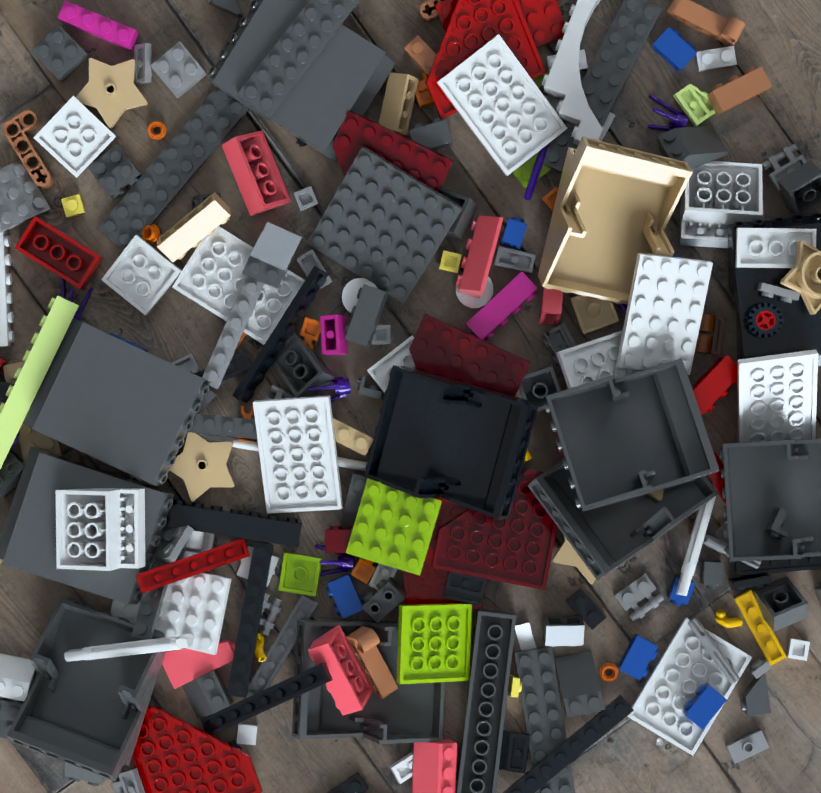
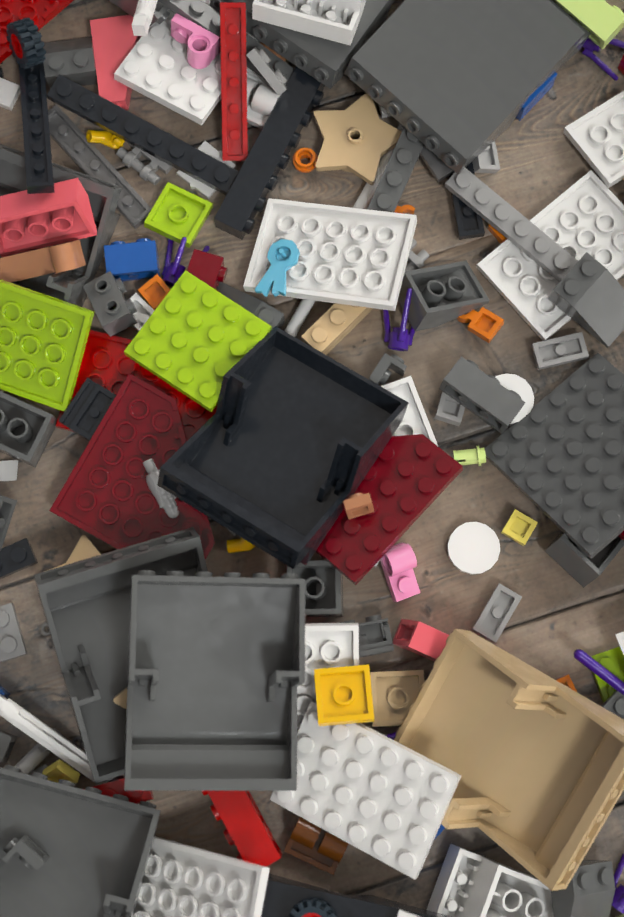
camera: 110 degrees right, 10 degrees down
(169, 602) = (202, 44): none -> bright pink plate
(211, 727) = (26, 43): none -> black wheel
(224, 501) = (301, 154): none -> orange plate
(280, 334) = (492, 282): black plate -> none
(312, 487) = (282, 257): none -> medium azure piece
(333, 335) = (471, 345): dark pink brick -> none
(411, 311) = (470, 456): none -> yellowish green pin
(476, 377) = (358, 505): none -> nougat plate
(479, 256) = (518, 566): coral slope -> none
(498, 308) = (441, 576): dark pink brick -> none
(503, 524) = (164, 498): none -> light grey piece
(508, 335) = (399, 572): none -> bright pink plate
(514, 233) = (534, 620): blue brick -> none
(608, 346) = (343, 695): none -> yellow plate
(718, 521) = (61, 770): none -> light yellow plate

